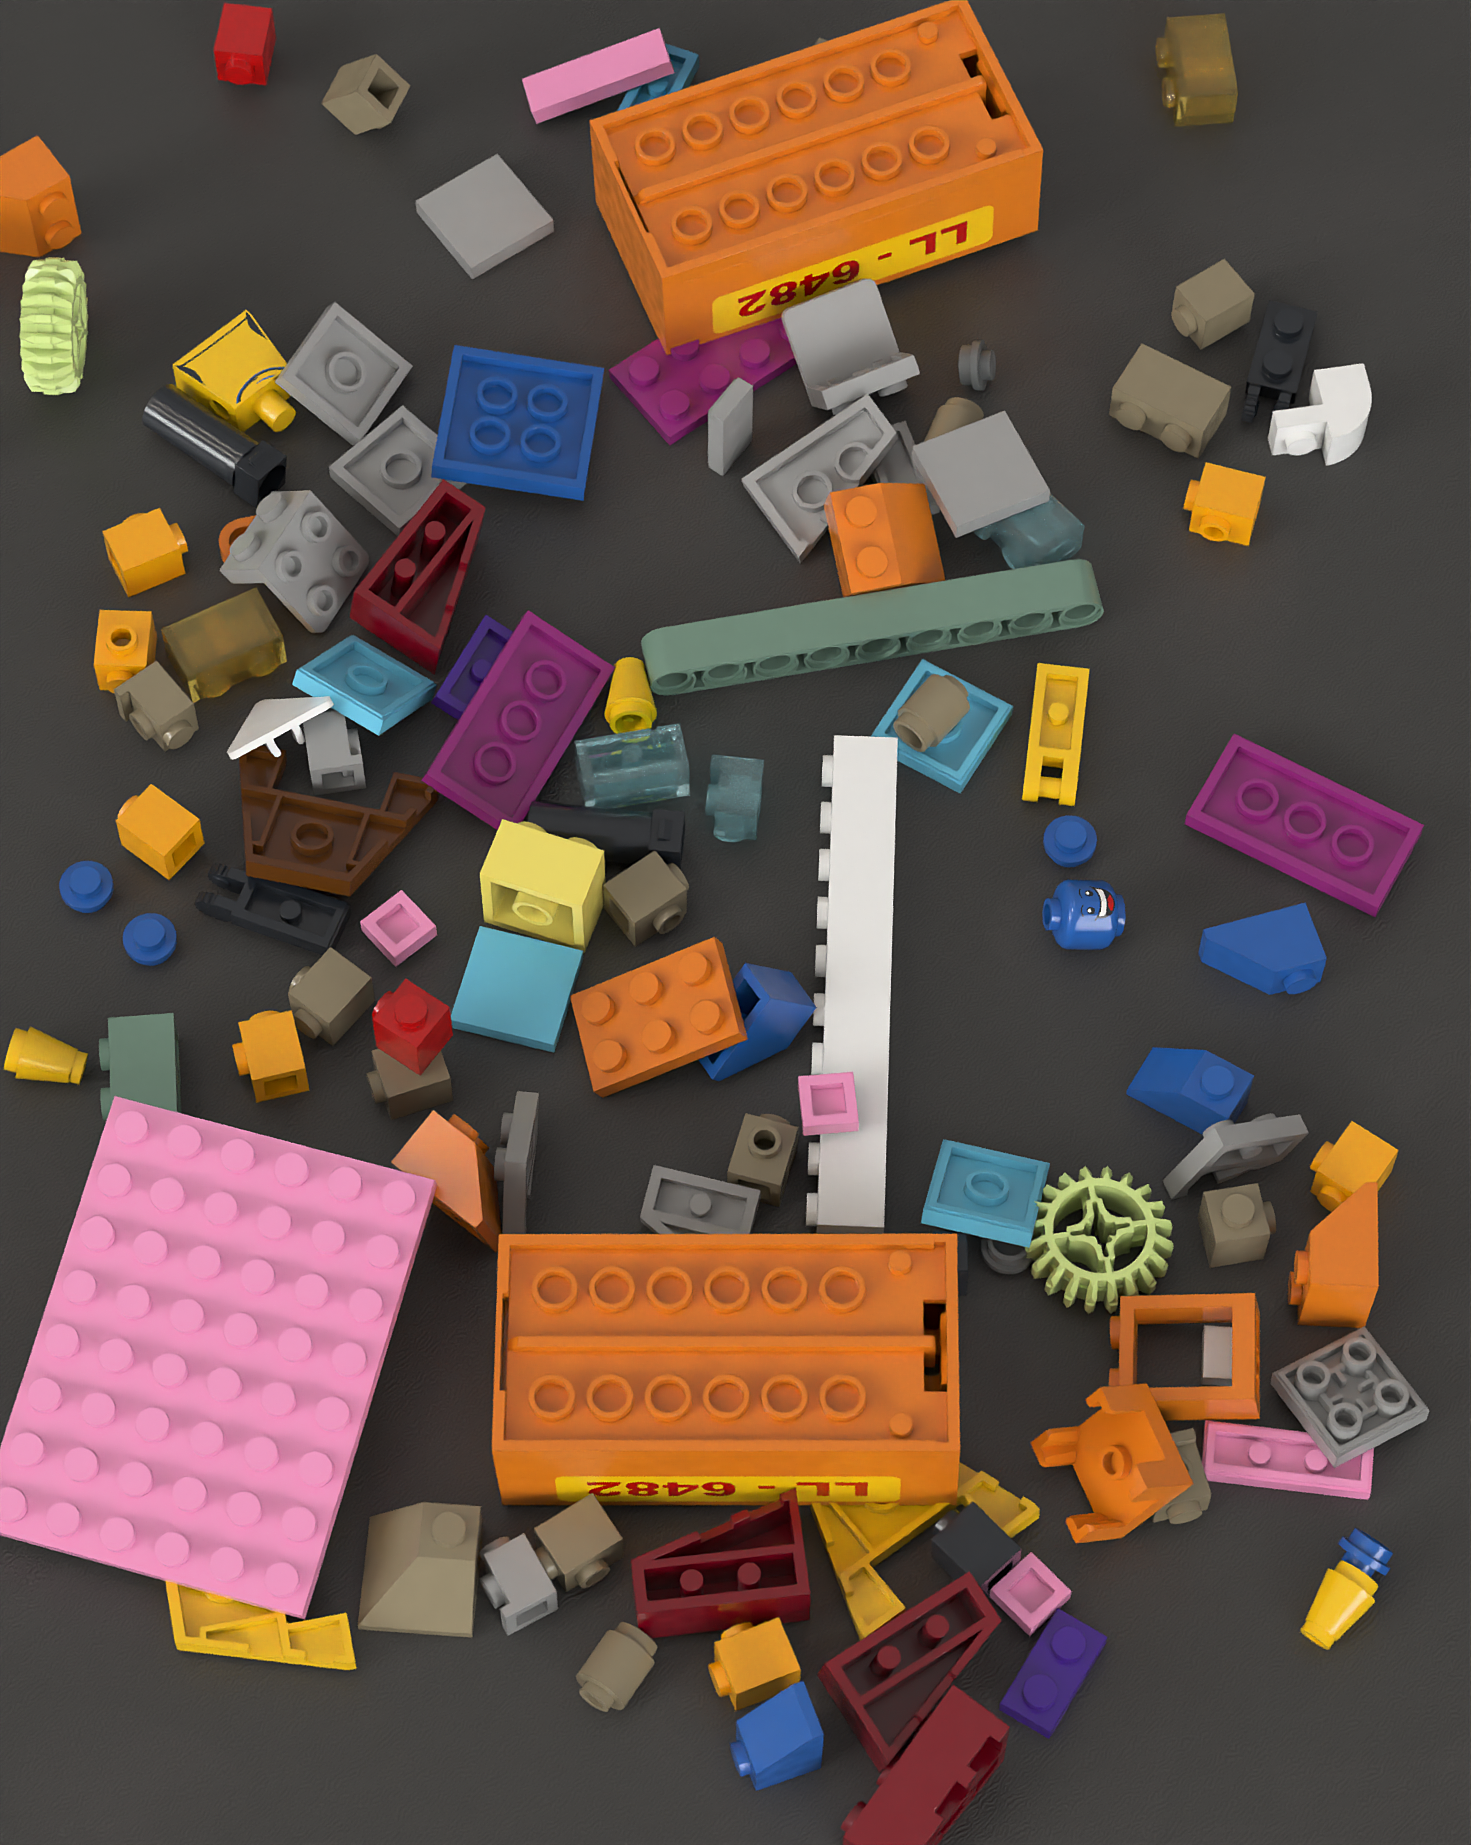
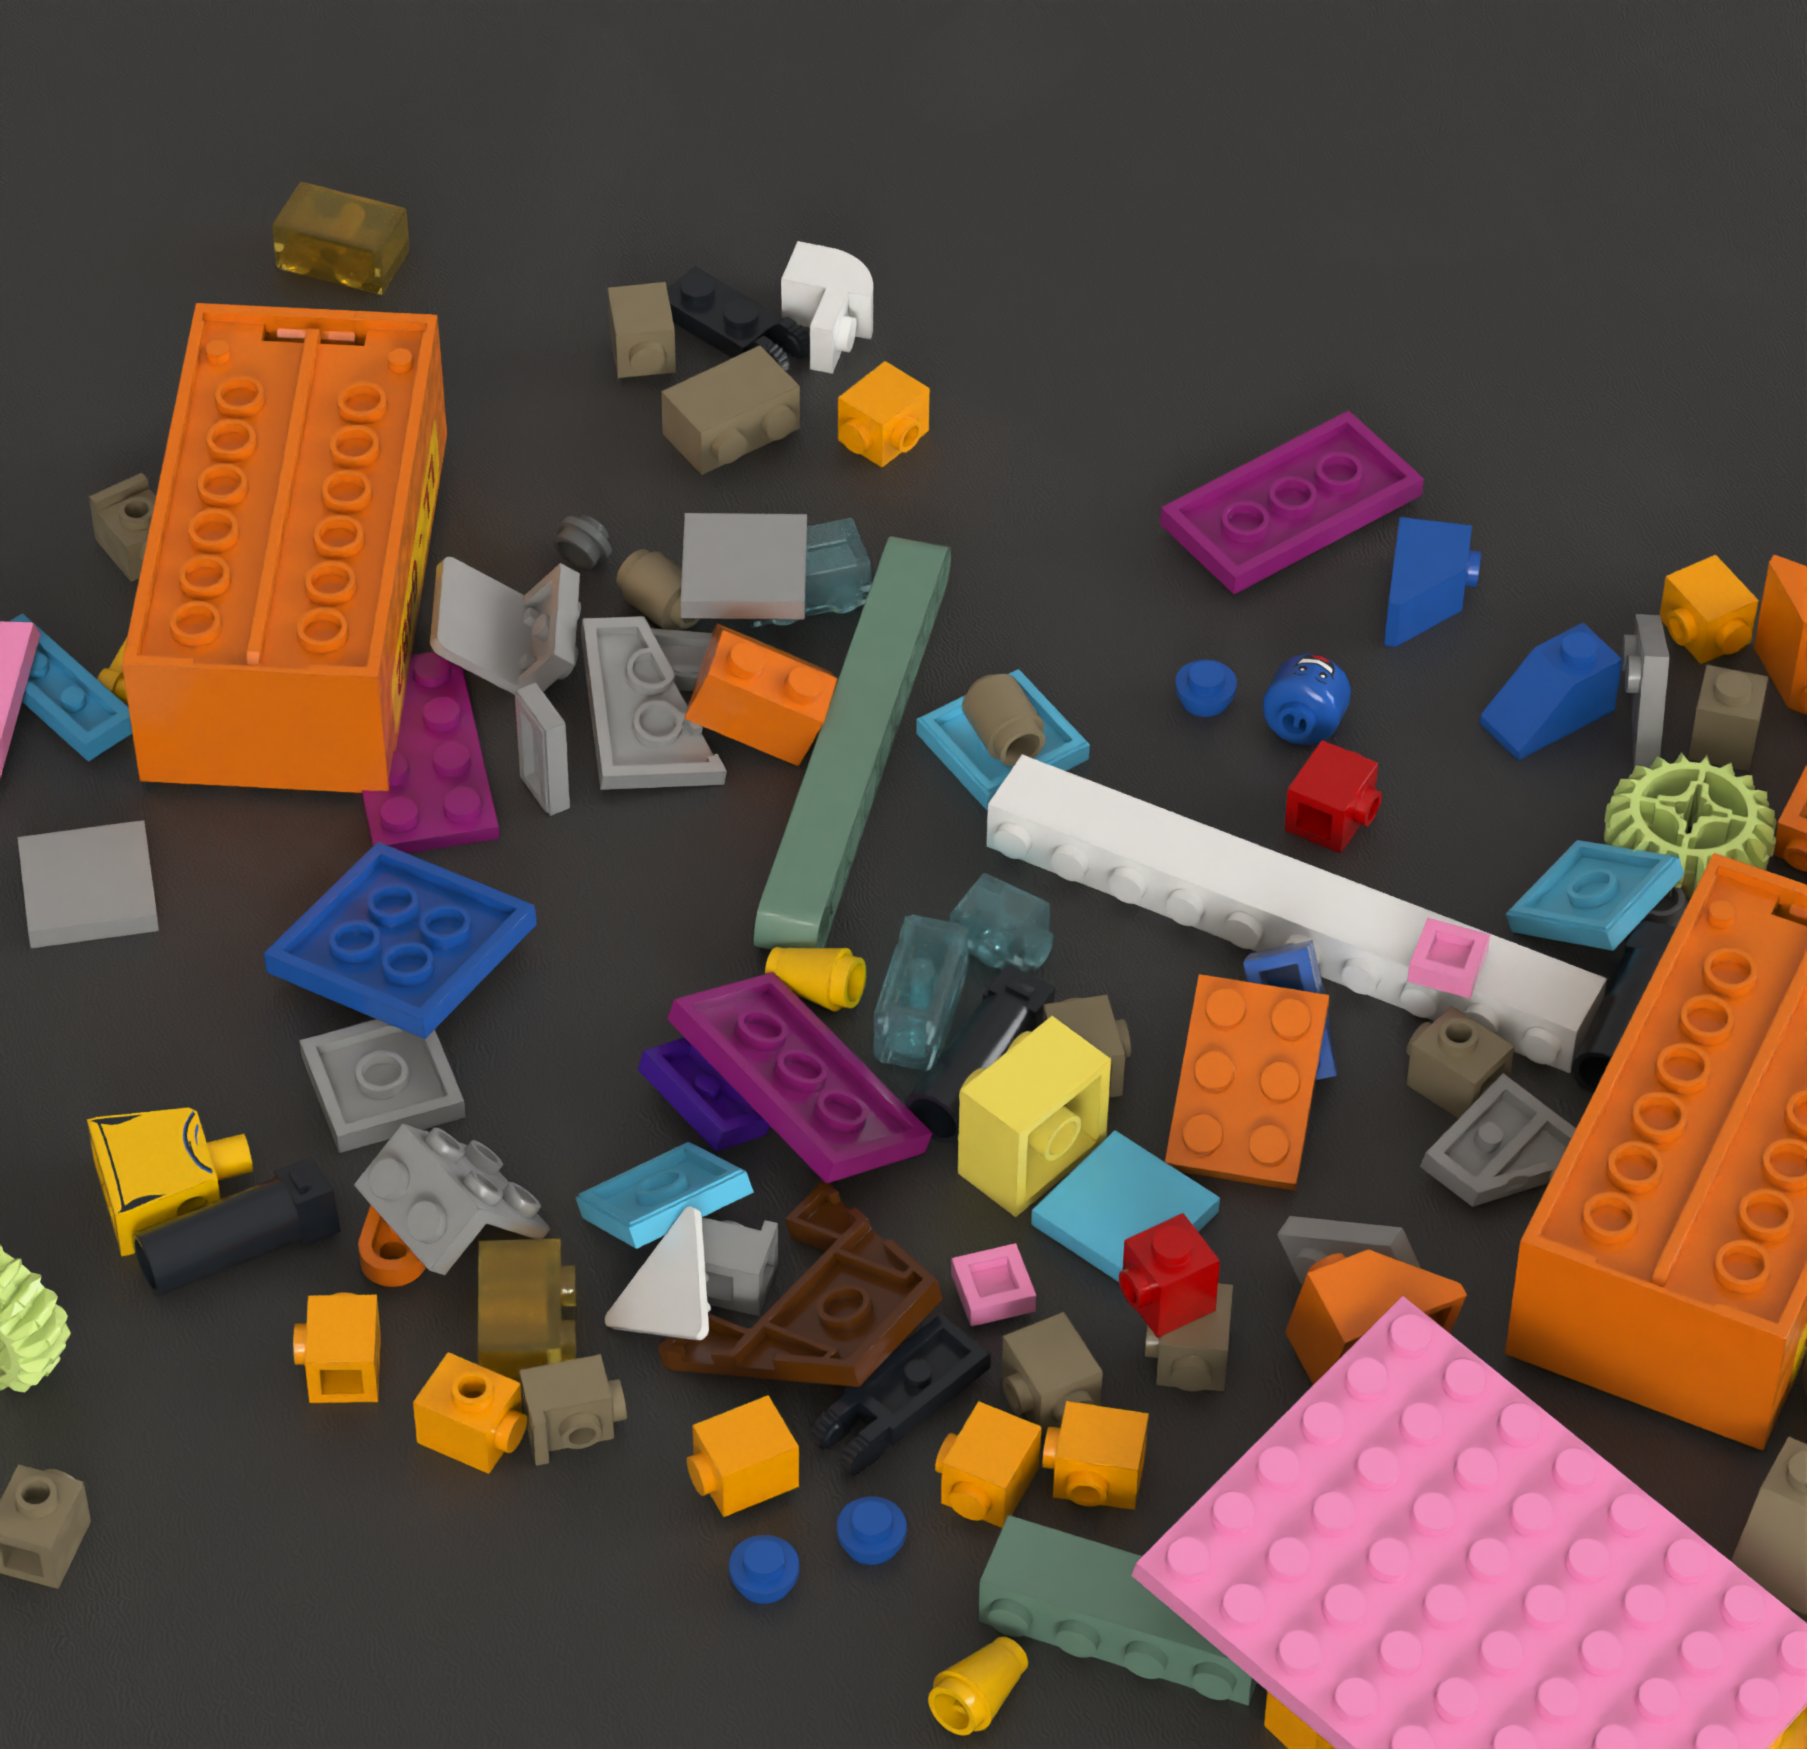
camera: 65 degrees left, 15 degrees down
(229, 987) = (988, 1464): none -> light orange brick
(343, 373) = (229, 1070): light grey tile -> none
(420, 577) = (556, 1091): dark red wedge -> none
(995, 971) = (1332, 797): none -> red brick
(1056, 732) = (1074, 647): yellow plate -> none

